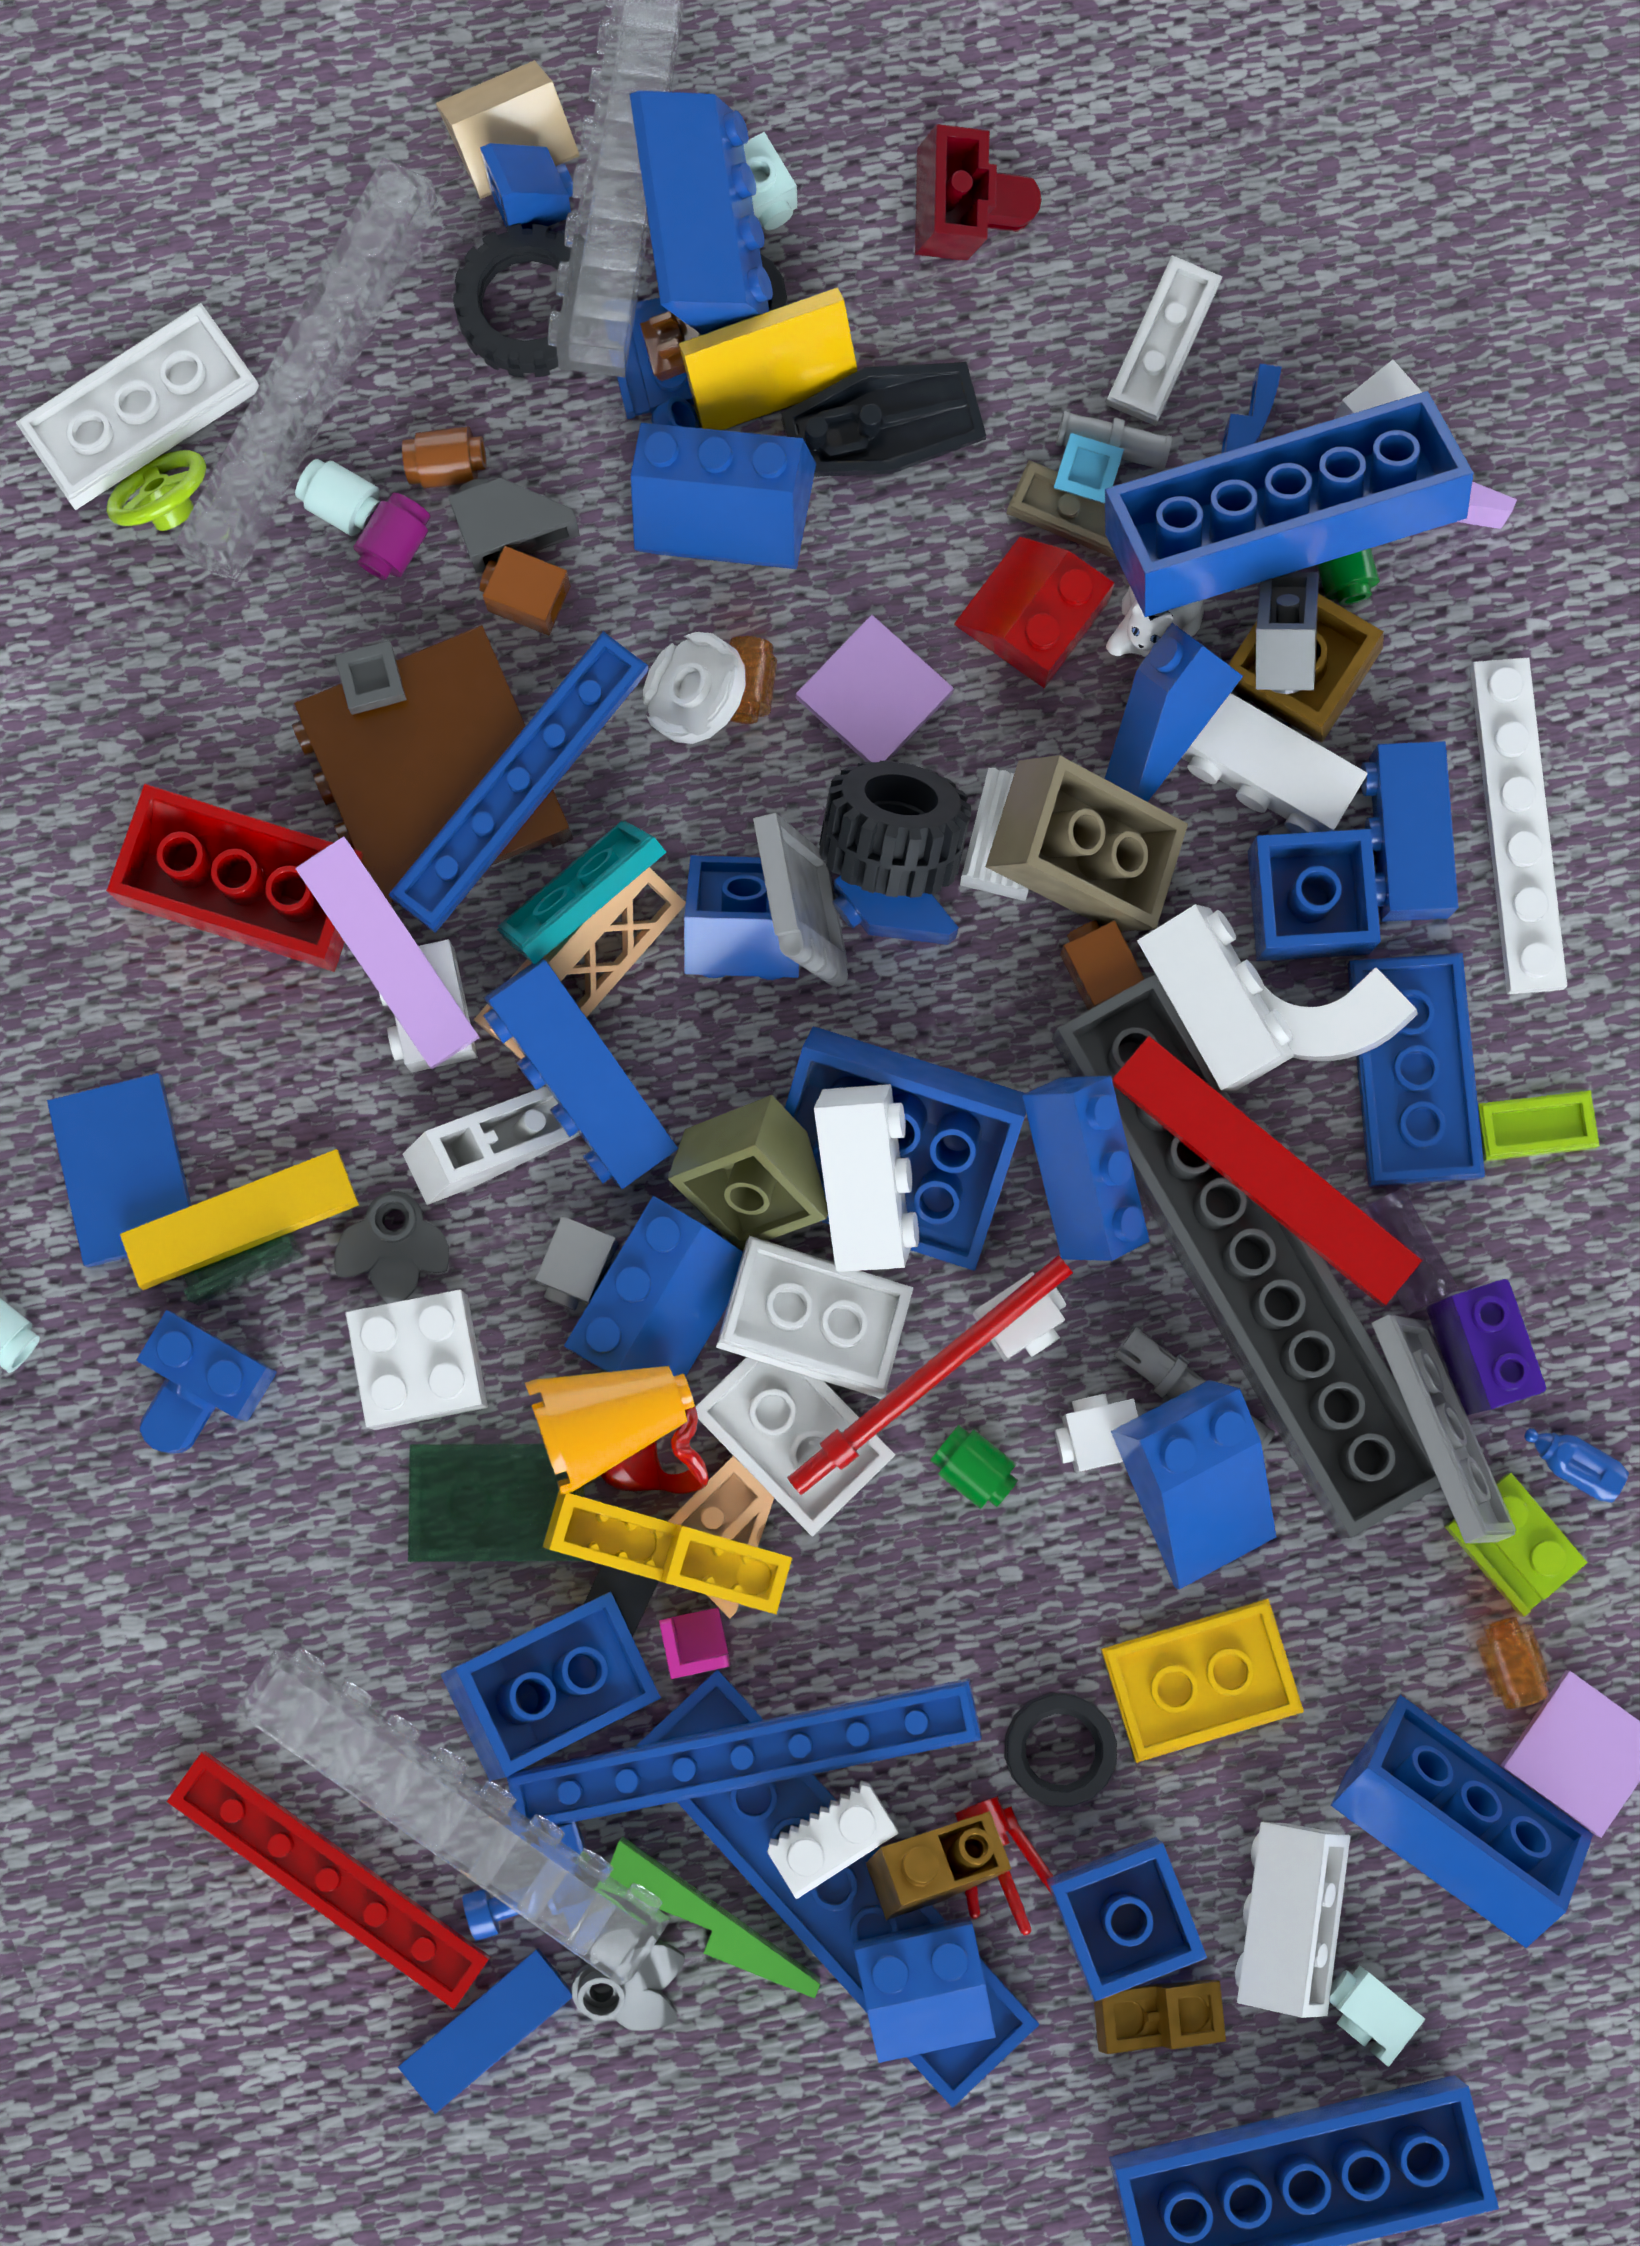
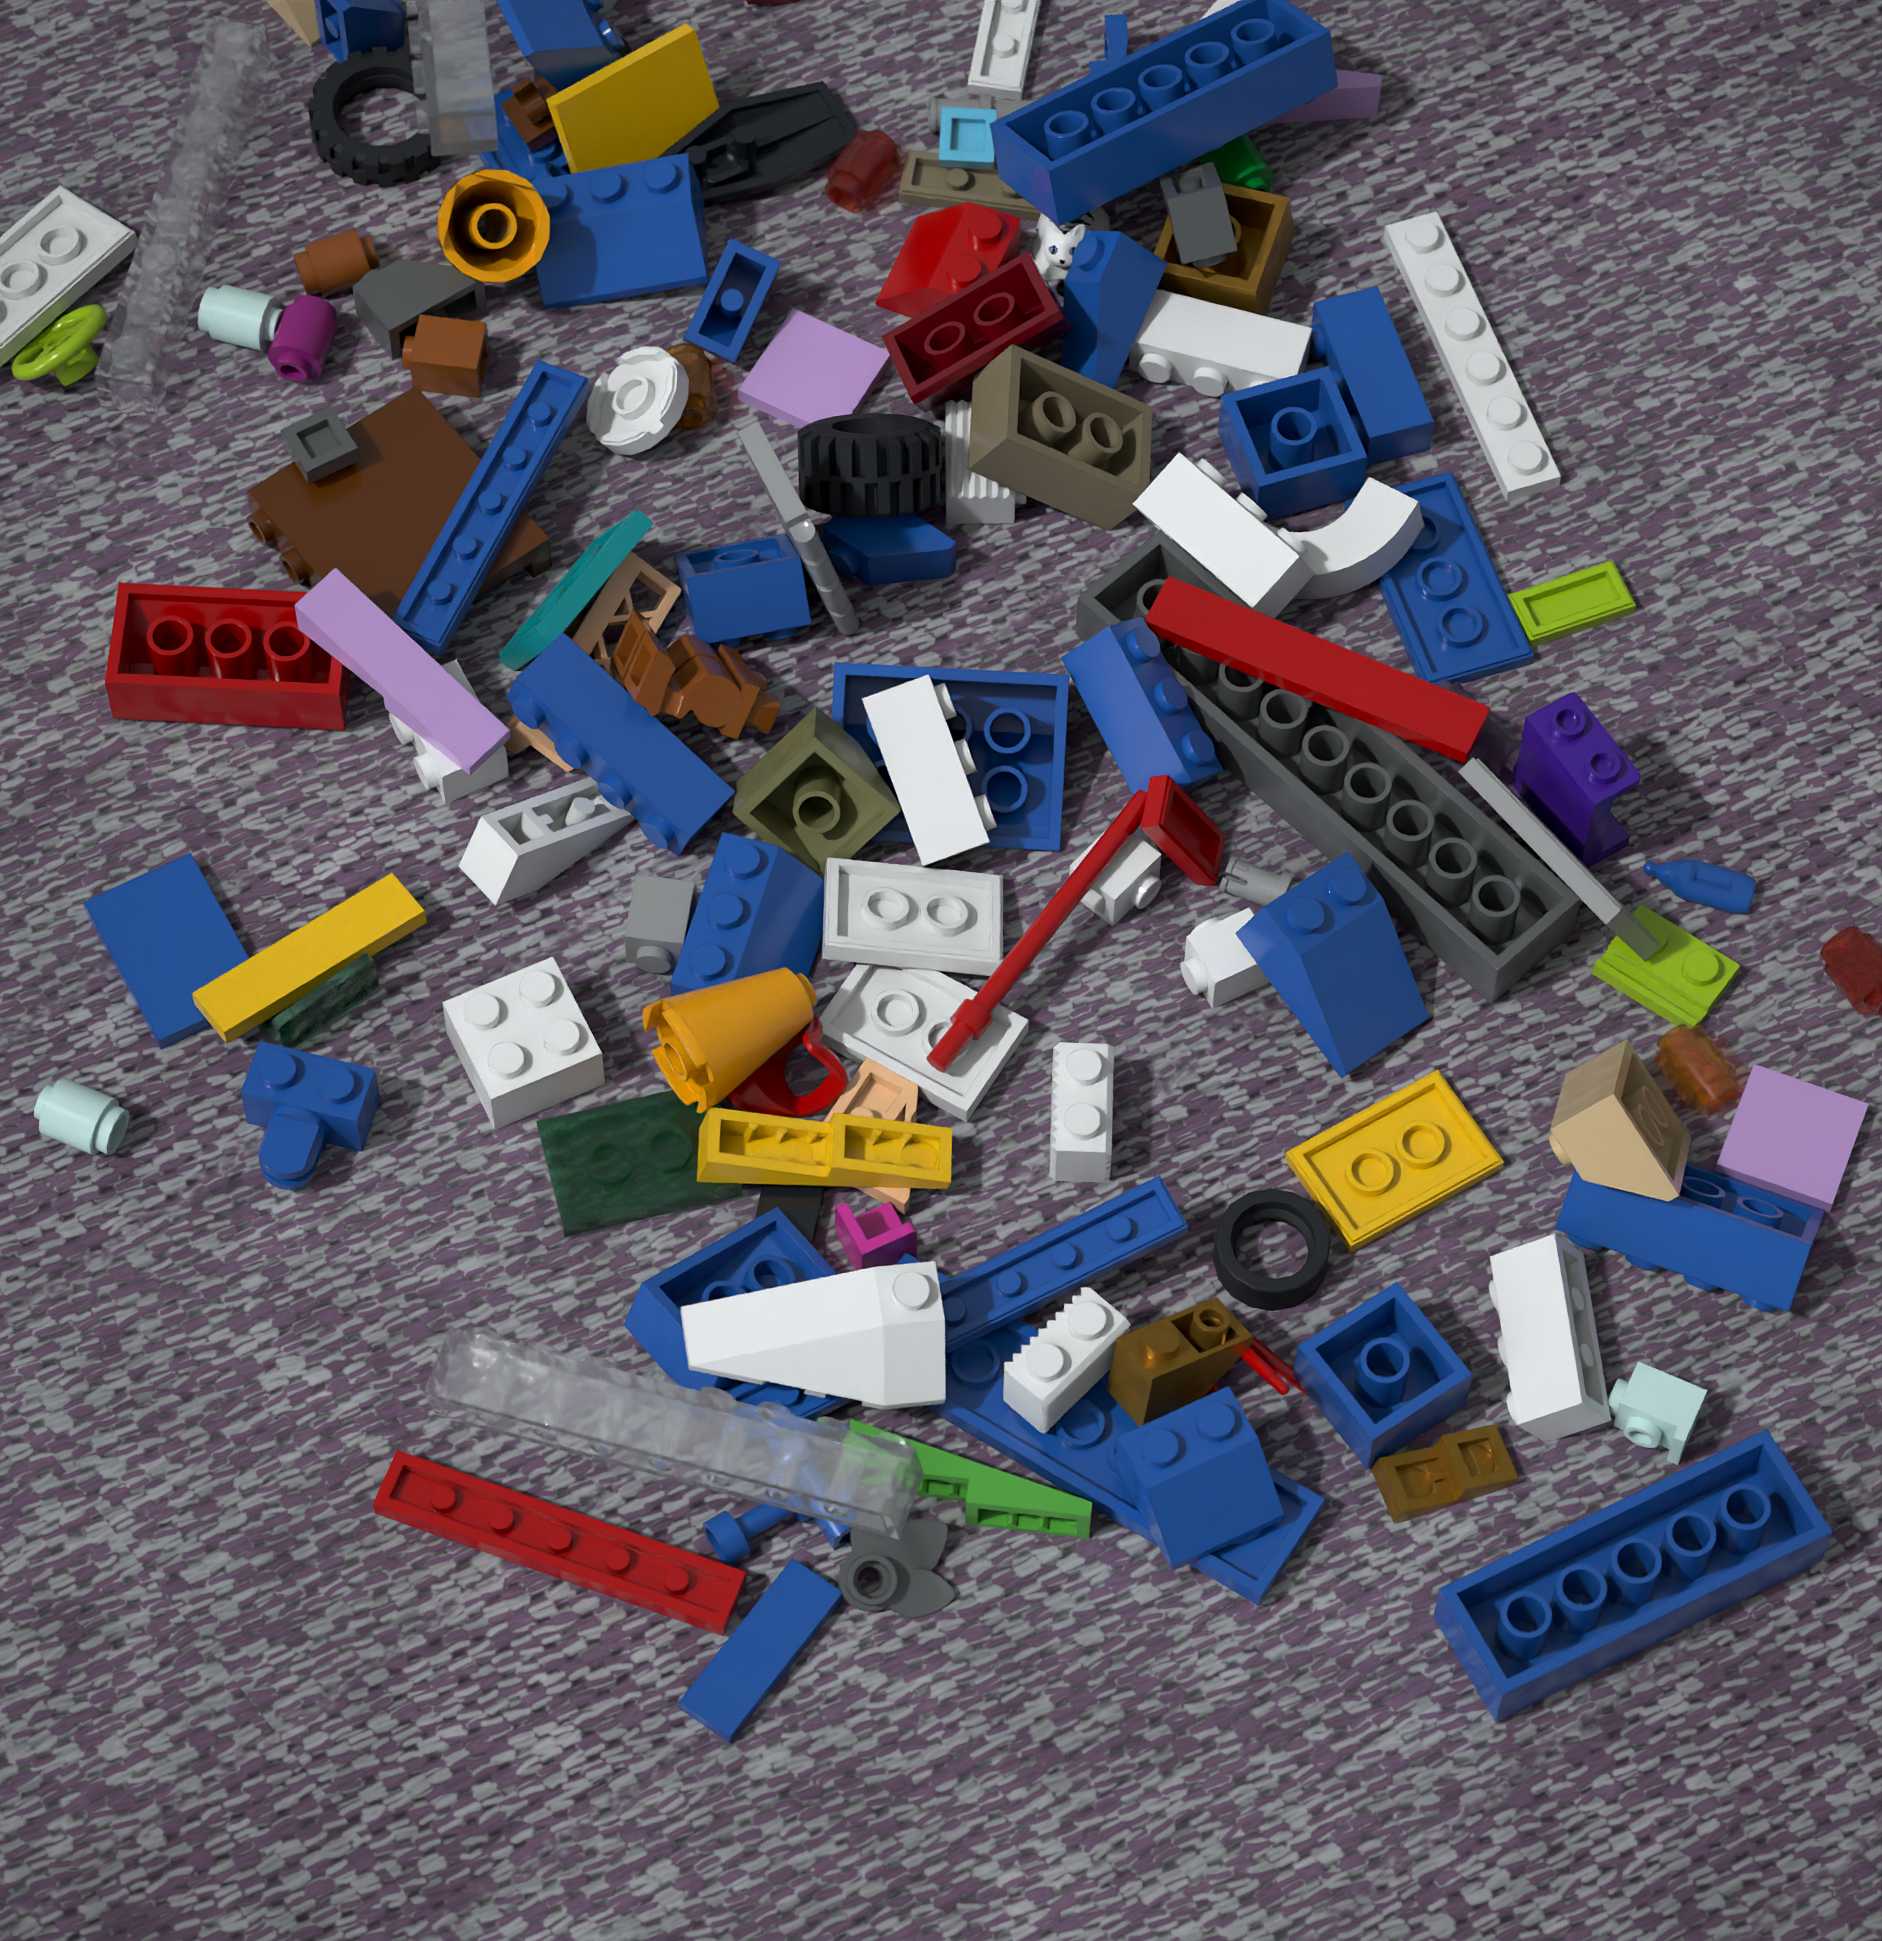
camera: 15 degrees left, 20 degrees down
(392, 1256) = (469, 962): dark grey plate -> none
(588, 482) = (513, 219): none -> light orange cone
(626, 1775) = (843, 1335): none -> white wedge
(665, 1024) = (693, 678): none -> dark orange hips
(810, 603) = (732, 301): none -> blue slope
(921, 1566) = (1081, 1112): none -> white brick
(975, 1467) = (1110, 1015): green brick -> none
(978, 475) = (862, 170): none -> clear red brick
(1035, 707) = (969, 329): none -> dark red slope
(1092, 1298) = (1182, 830): none -> red tile
(1099, 962) = (1097, 544): dark orange brick -> none
(1419, 1736) = (1620, 1127): none -> tan slope

